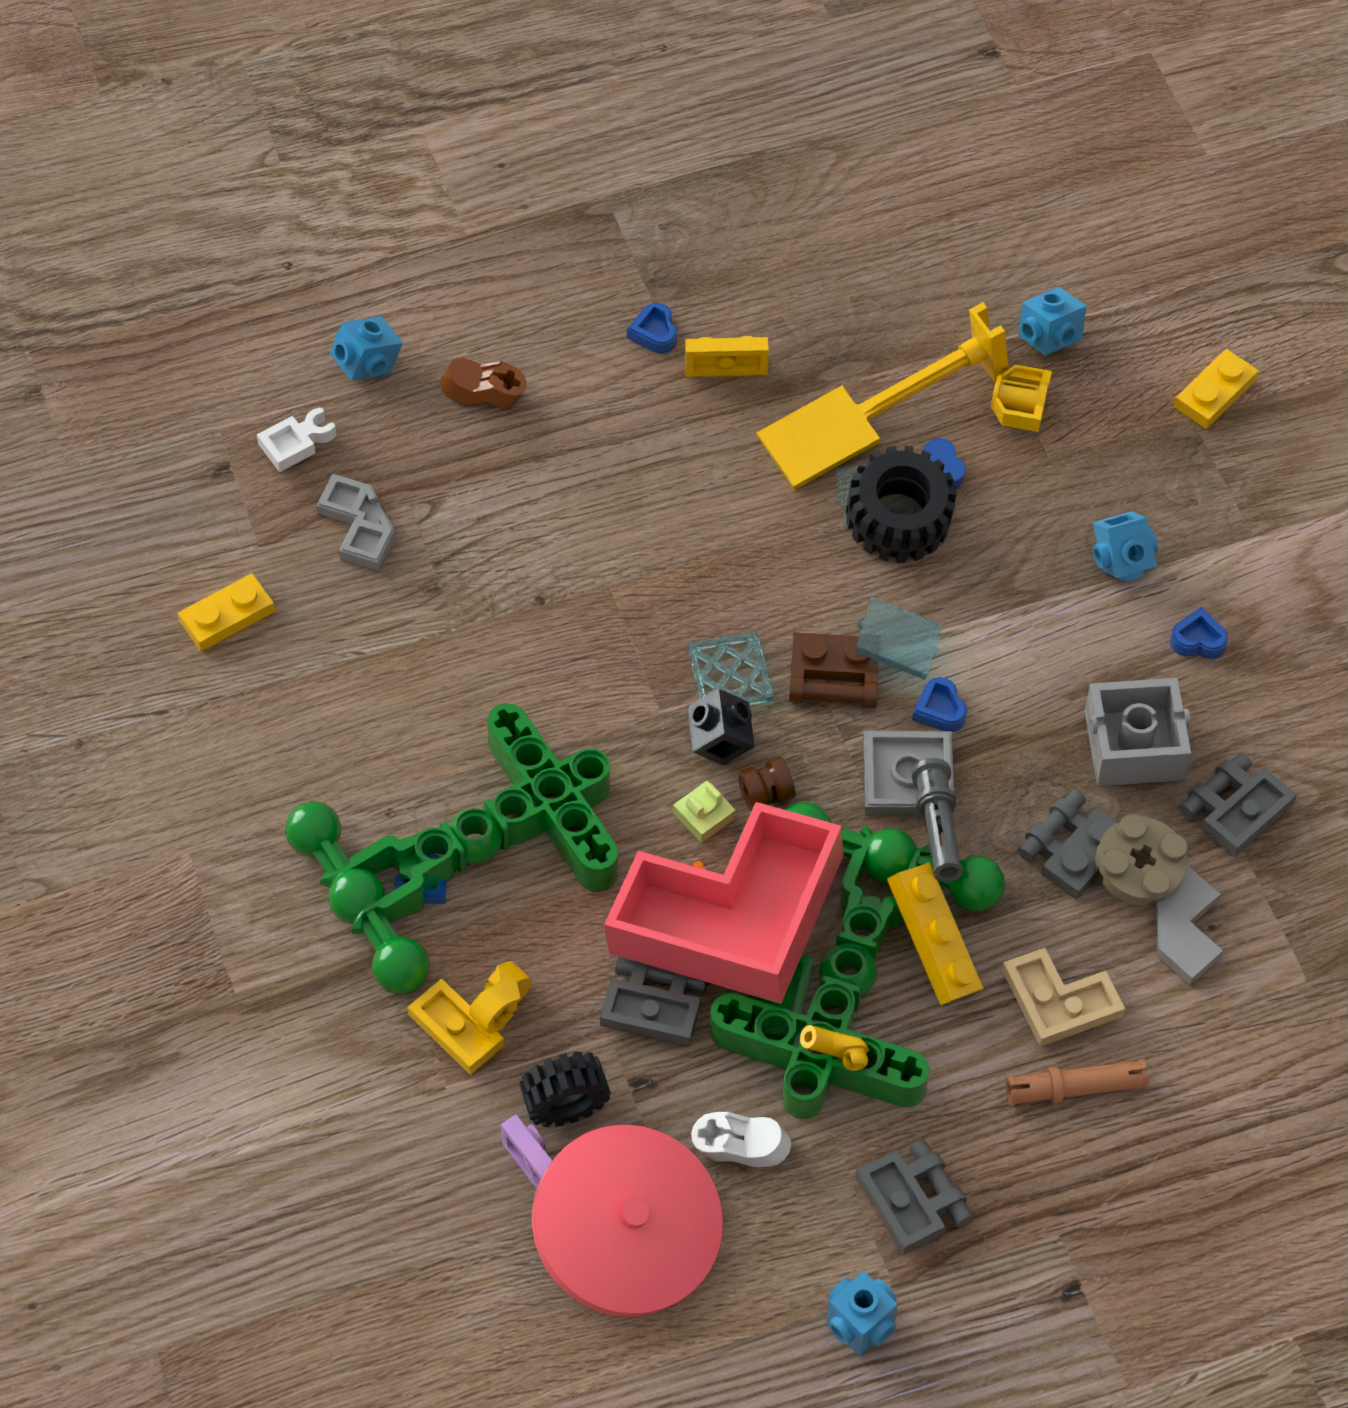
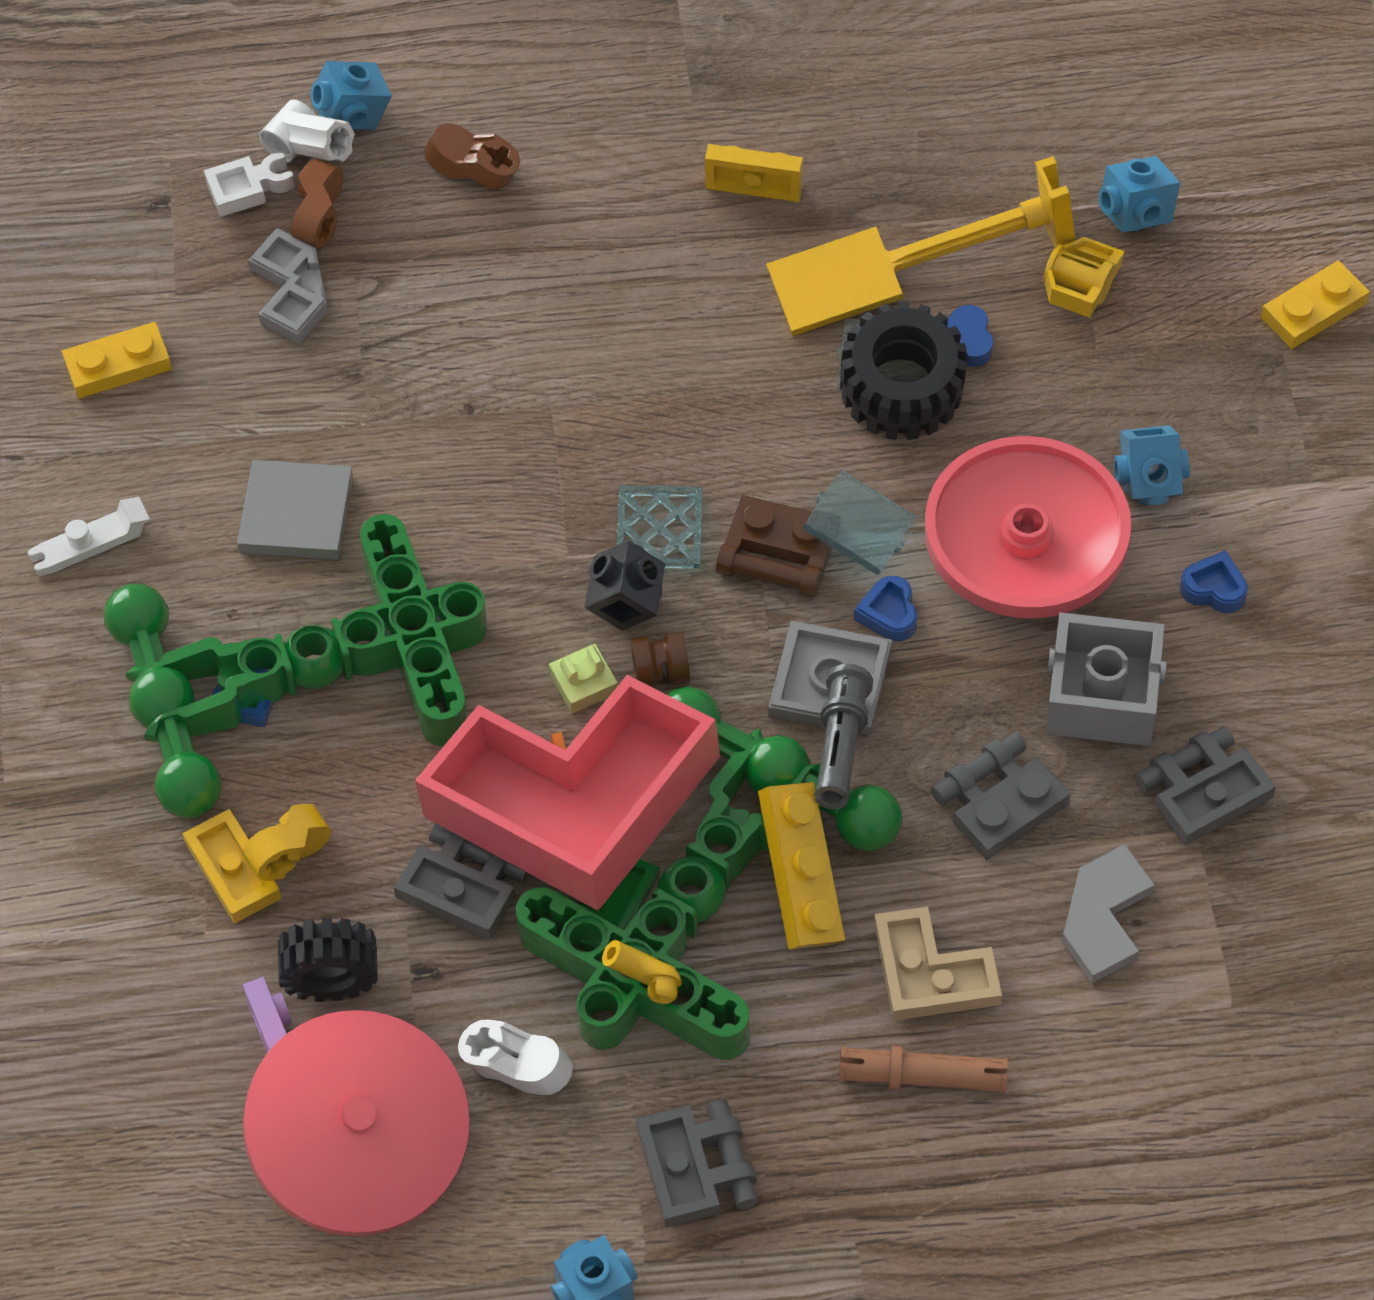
camera: 15 degrees right, 0 degrees up
(250, 770) = (90, 539): none -> white piece
(330, 386) = (302, 132): none -> white piece
(365, 453) = (315, 217): none -> dark orange piece
(419, 713) = (295, 509): none -> light grey tile
(654, 329) = (683, 129): blue tile -> none
(1039, 617) = (1027, 527): none -> coral dish
(1144, 836) = (1069, 856): dark tan plate -> none

